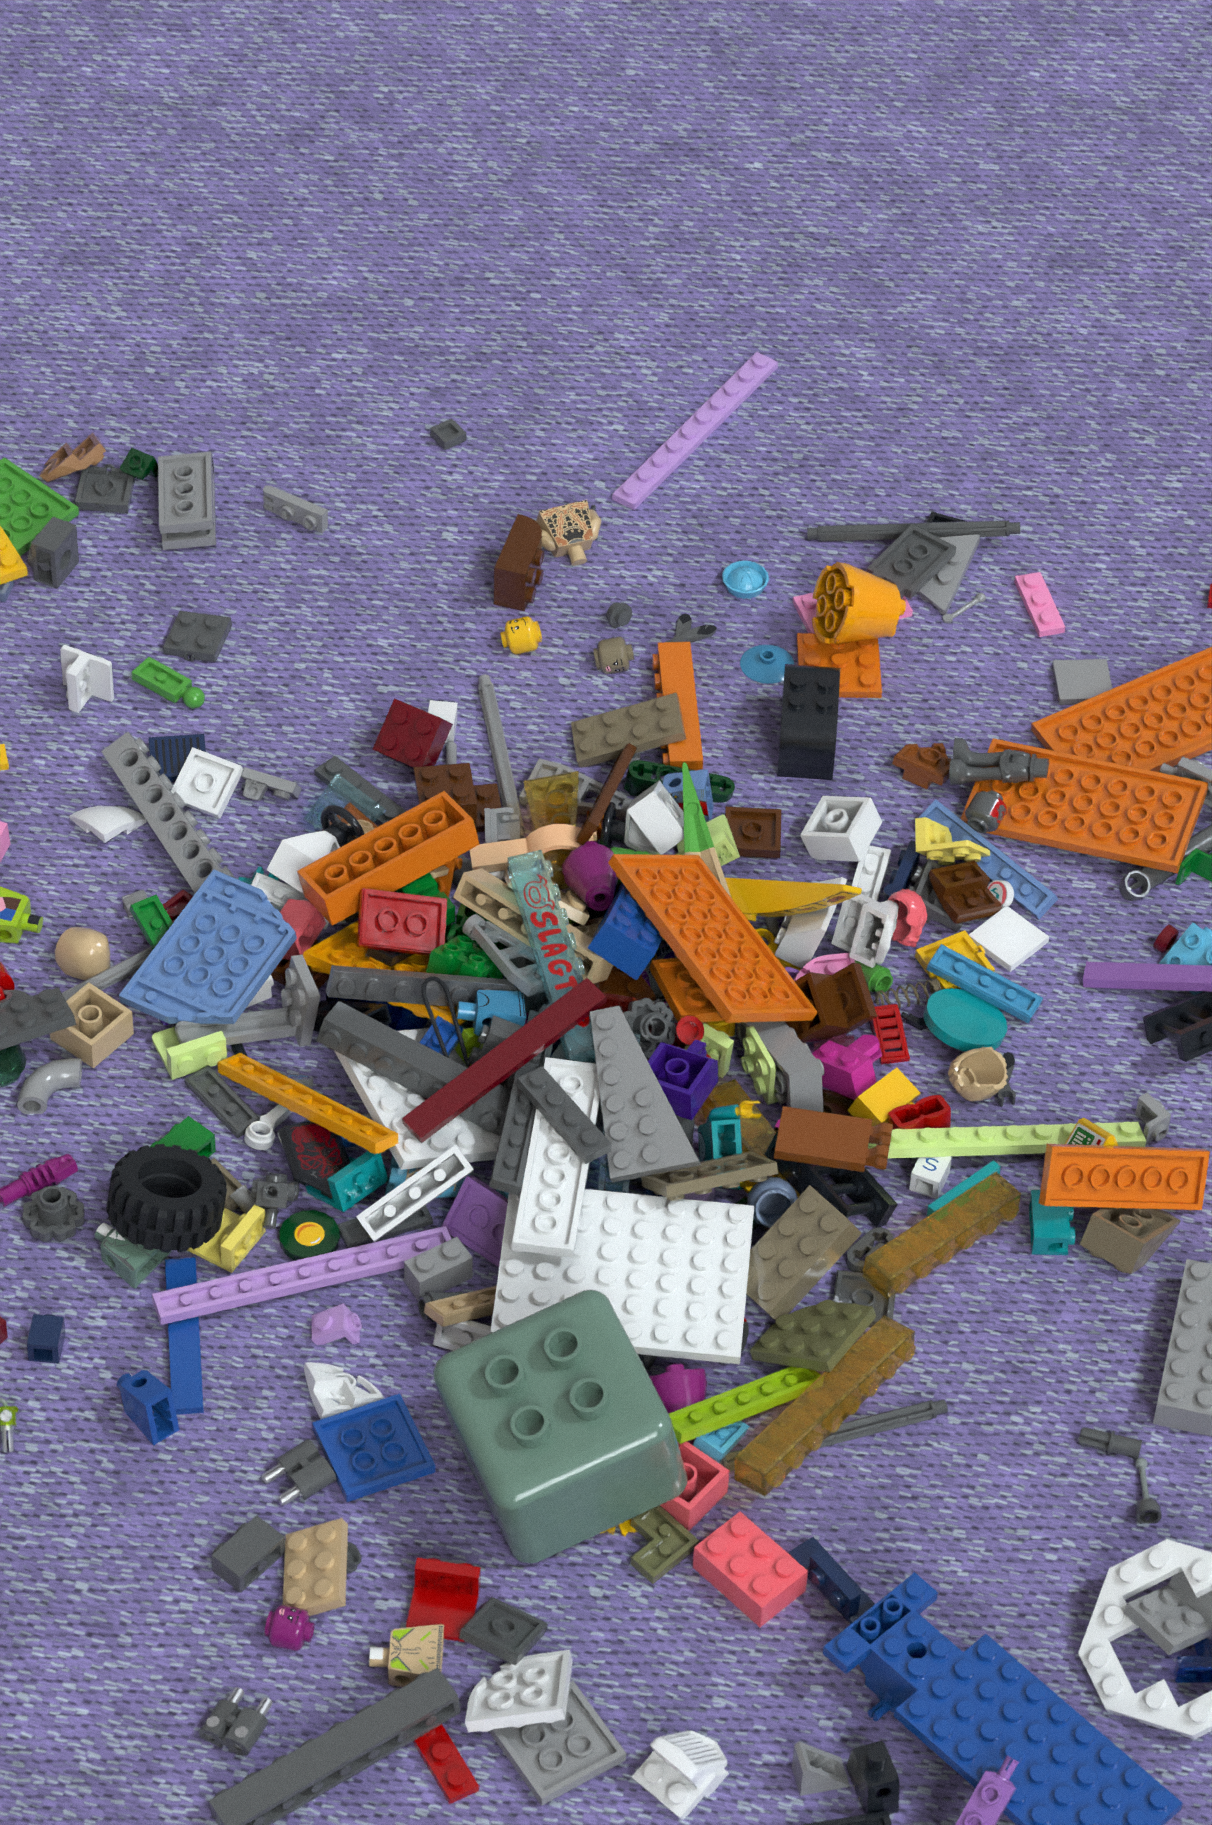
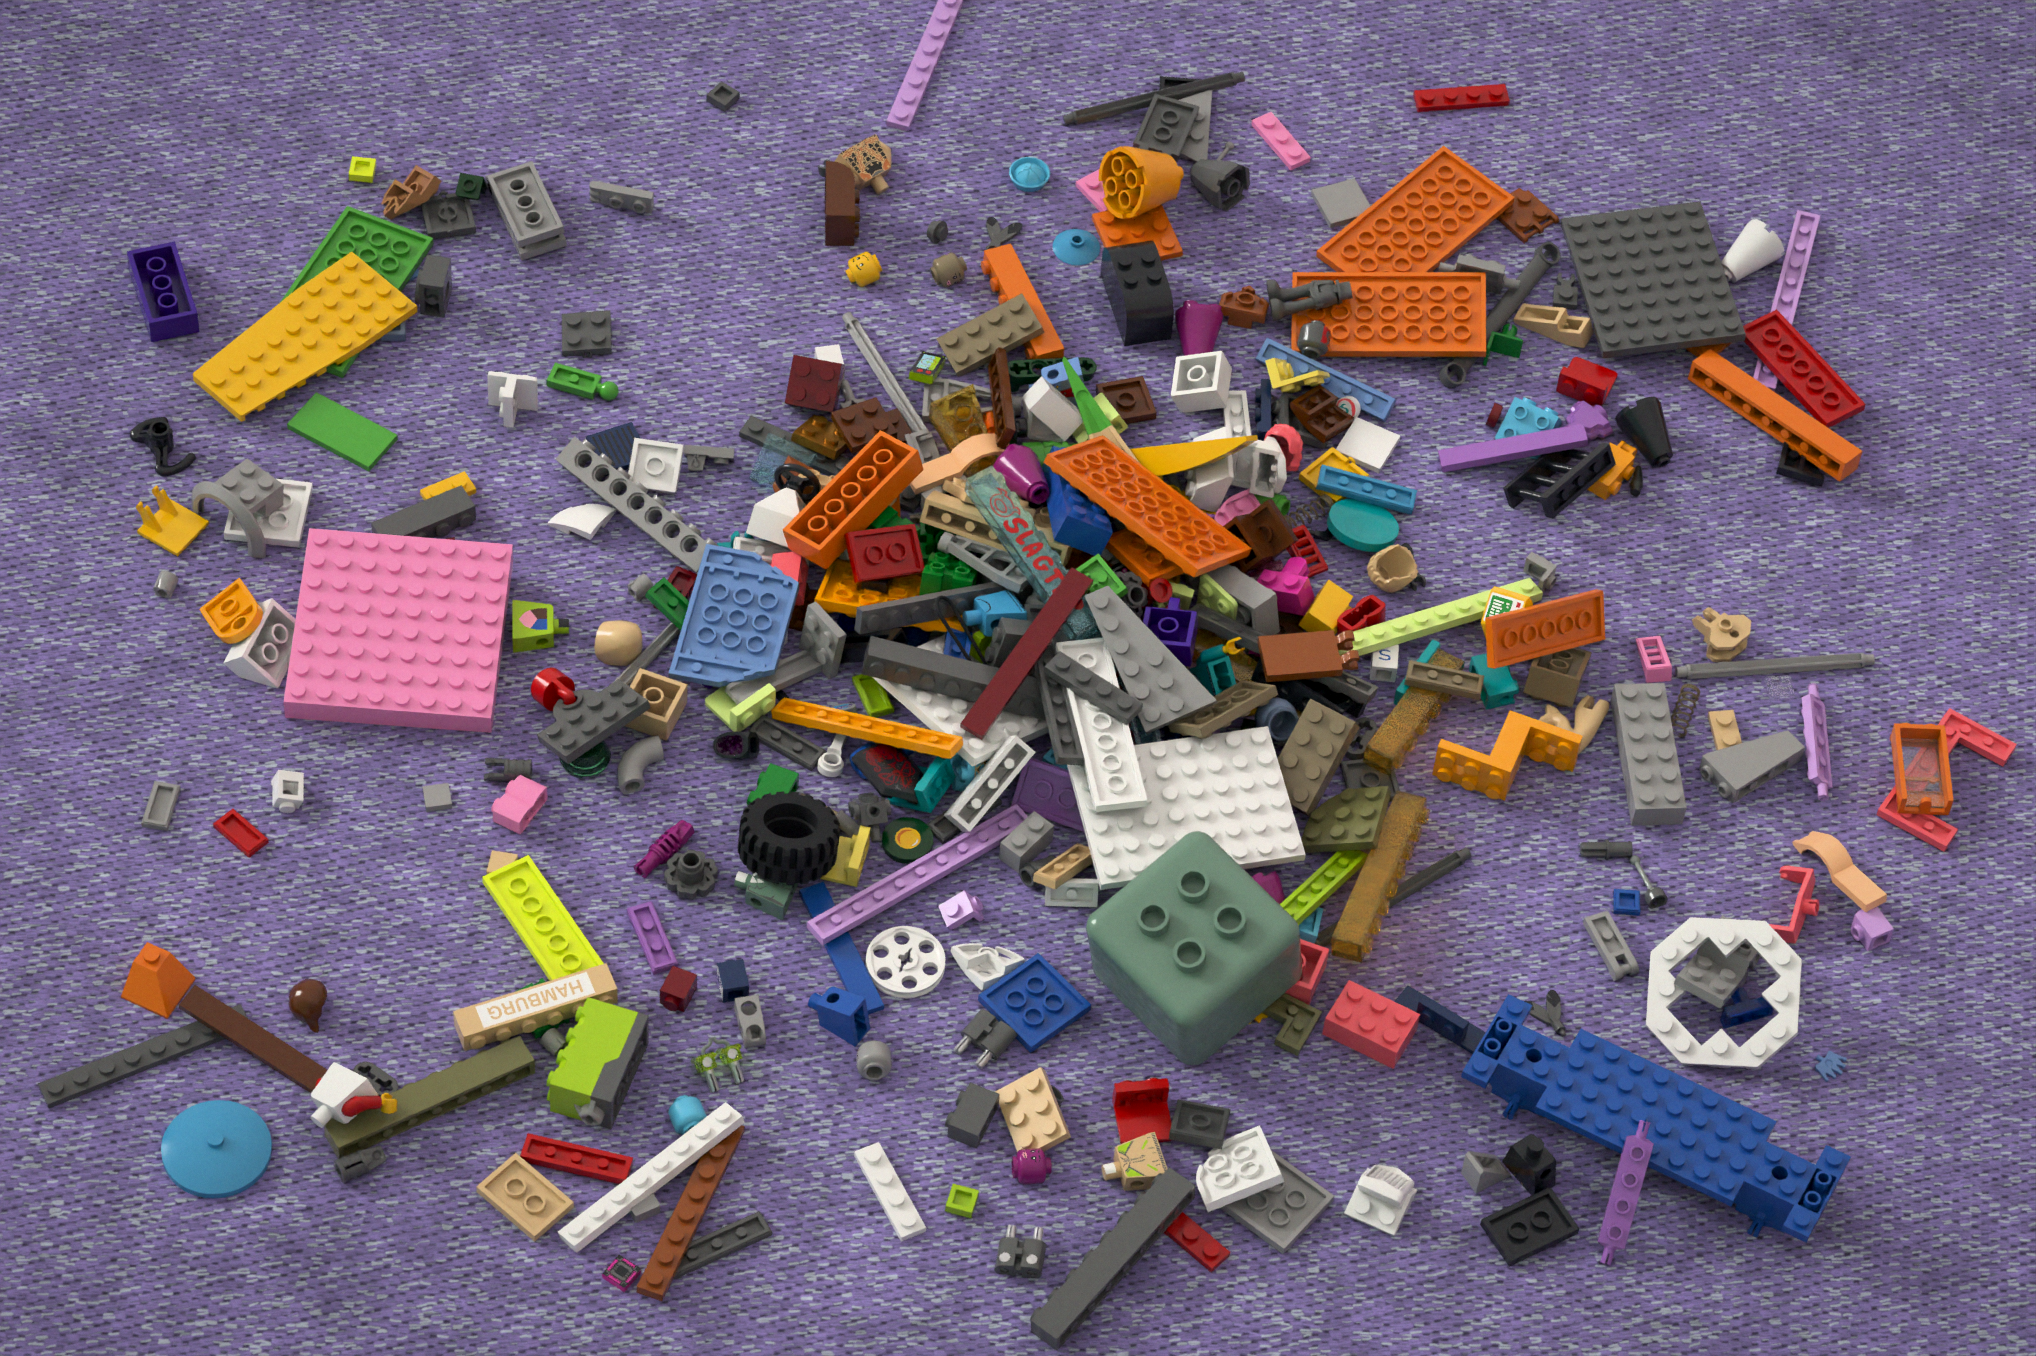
camera: 20 degrees left, 5 degrees up
(38, 426) = (362, 169): none -> neon yellow plate
(46, 1386) = (750, 1021): none -> light grey leg
(119, 1615) = (890, 1191): none -> white plate
(163, 1464) = (874, 1060): none -> light grey head
(165, 1090) = (737, 745): none -> rock
(195, 1646) = (962, 1201): none -> lime plate
(249, 1378) = (912, 970): none -> white wedge
(337, 1081) = (872, 696): none -> lime tile
(394, 791) = (820, 437): none -> pearl gold plate
(546, 748) = (927, 367): none -> tile
(622, 994) = (1102, 576): none -> bright green bracket
(754, 1088) = (1228, 628): none -> flat silver plate
(863, 769) = (1198, 326): none -> magenta cone
(952, 625) = (1220, 177): none -> dark grey cone
(971, 1615) = (1551, 1014): none -> dark grey piece
(987, 1207) = (1444, 680): none -> dark tan tile
(1029, 1307) = (1496, 772): none -> light orange bracket
(1073, 1551) = (1611, 945): none -> light grey plate
(1112, 1508) = (1626, 902): none -> blue tile
(1144, 1292) = (1586, 720): none -> tan piece

